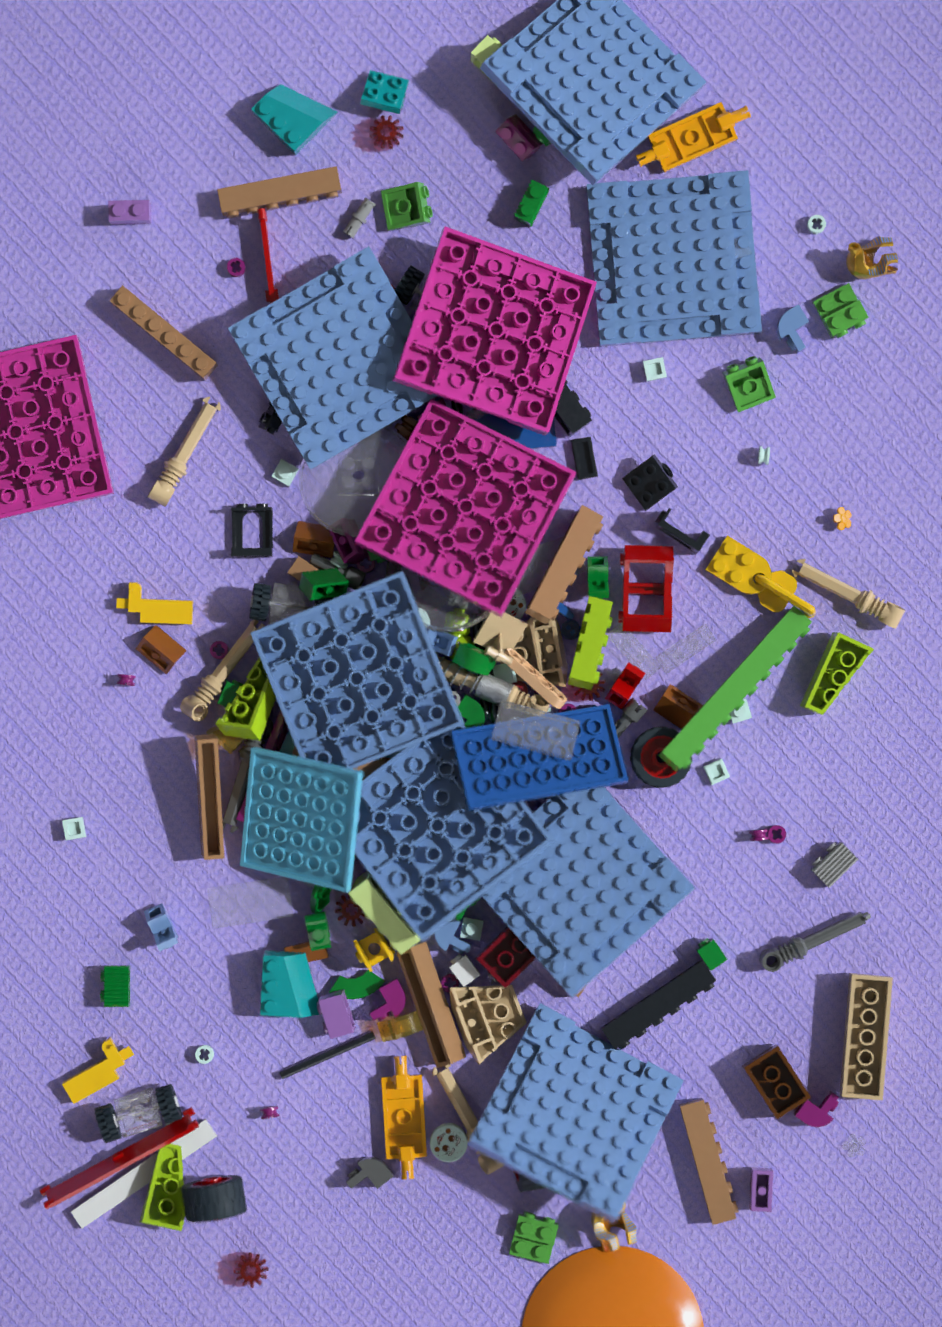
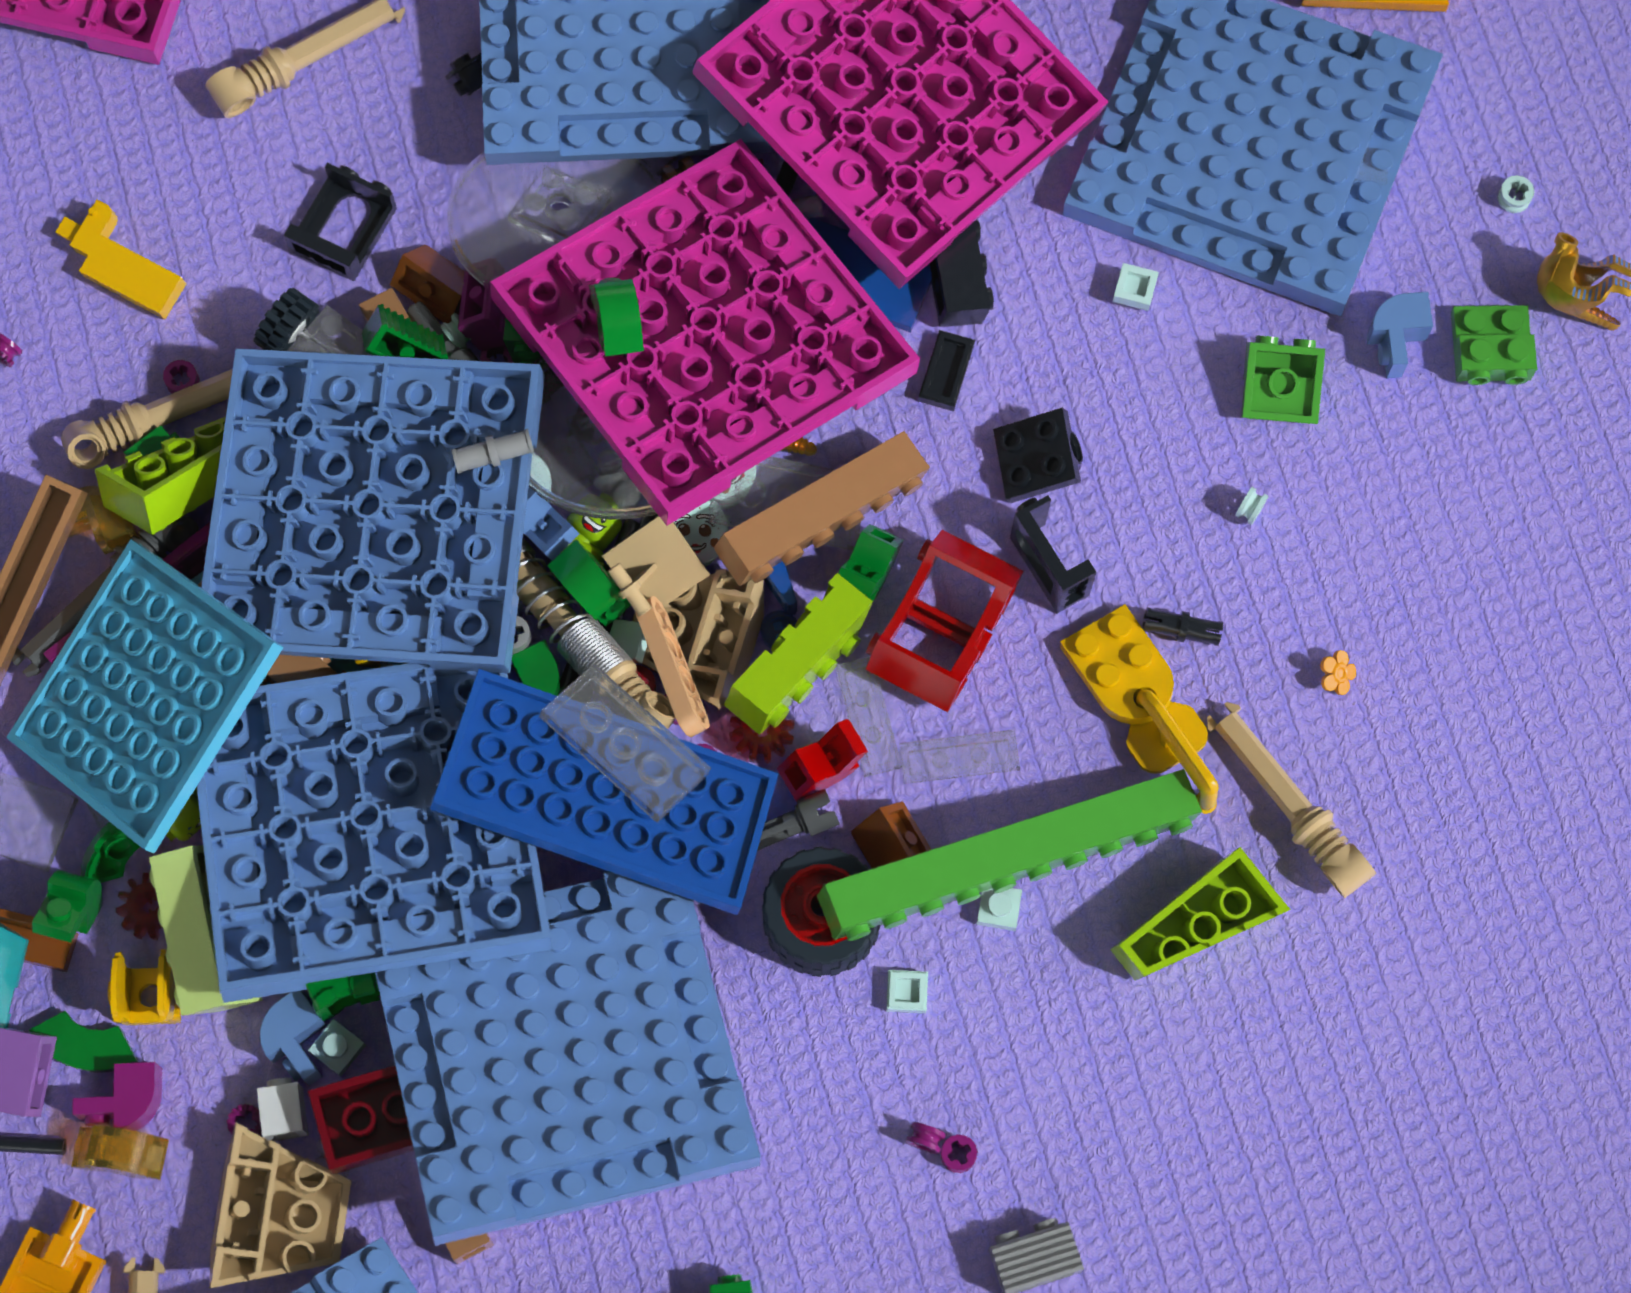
camera: 25 degrees right, 15 degrees down
(160, 649) = (87, 330): dark orange panel -> none
(285, 472) = (446, 161): light aqua plate -> none
(404, 626) = (492, 451): none -> light grey pin
(427, 530) = (617, 316): none -> green brick
(431, 1005) = (189, 1141): medium nougat brick -> none
(759, 532) = (1182, 626): none -> black pin

